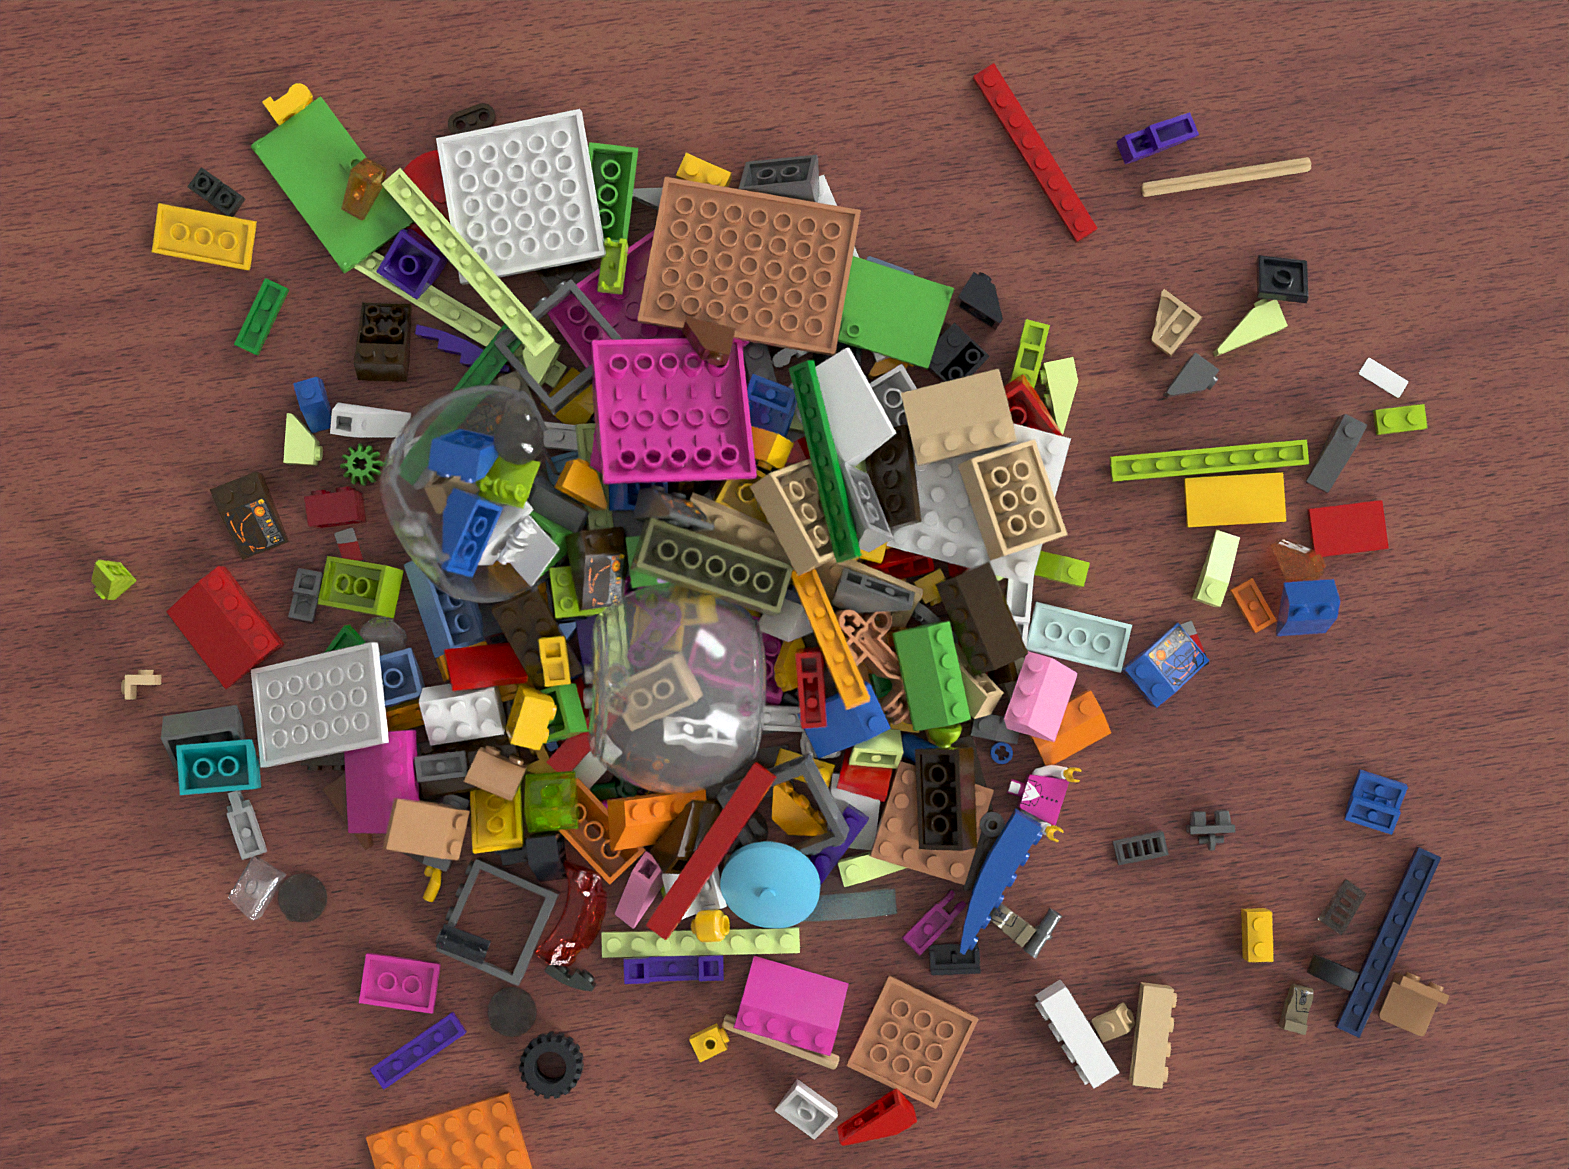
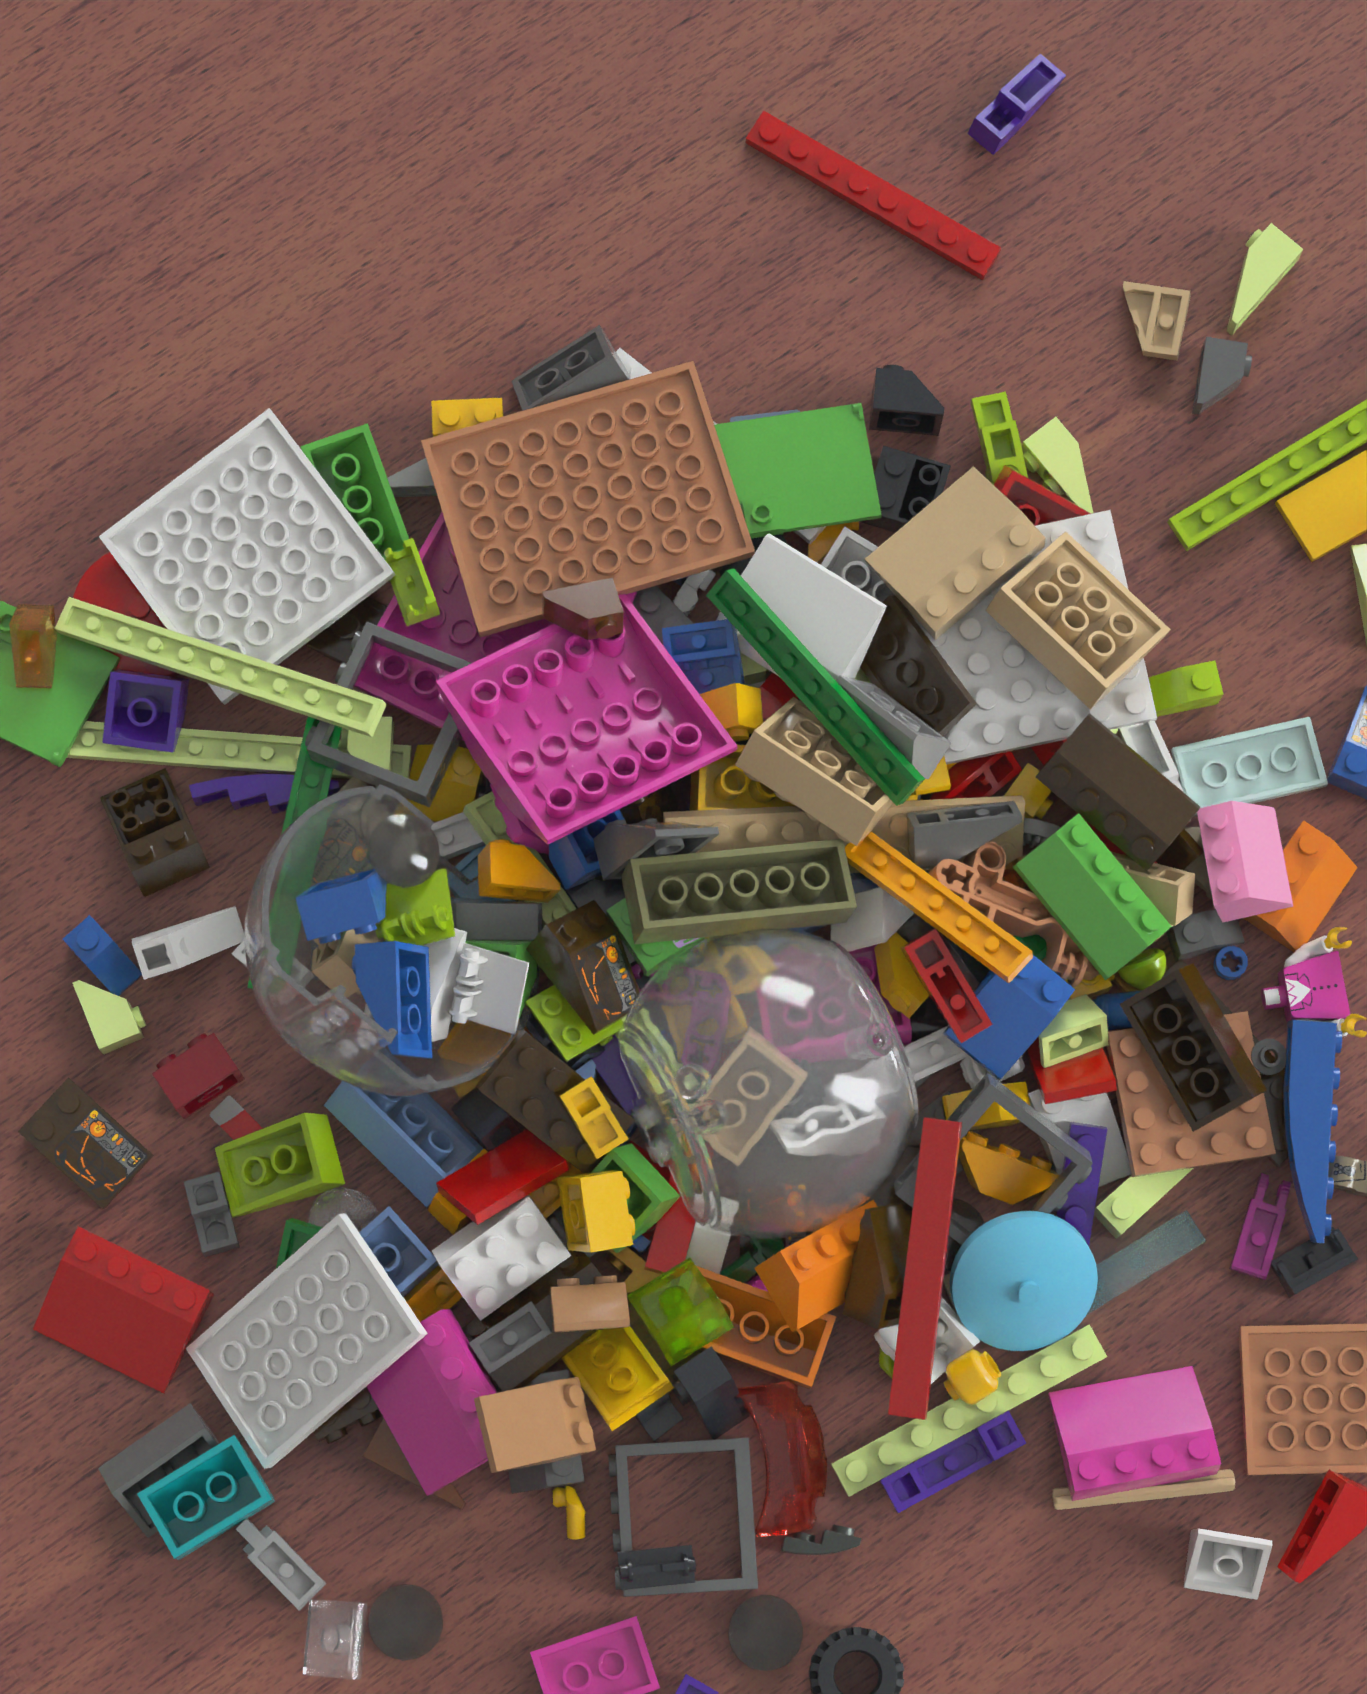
camera: 30 degrees left, 10 degrees down
(144, 677) = (46, 1431): tan bracket -> none
(352, 463) = (201, 992): bright green gear -> none
(471, 118) = (127, 493): dark brown plate -> none
(640, 890) = (855, 1376): bright pink slope -> none
(709, 1042) = (1050, 1536): yellow brick -> none
(1226, 177) = (1126, 110): tan axle -> none
(1282, 279) = (1265, 197): black tile -> none

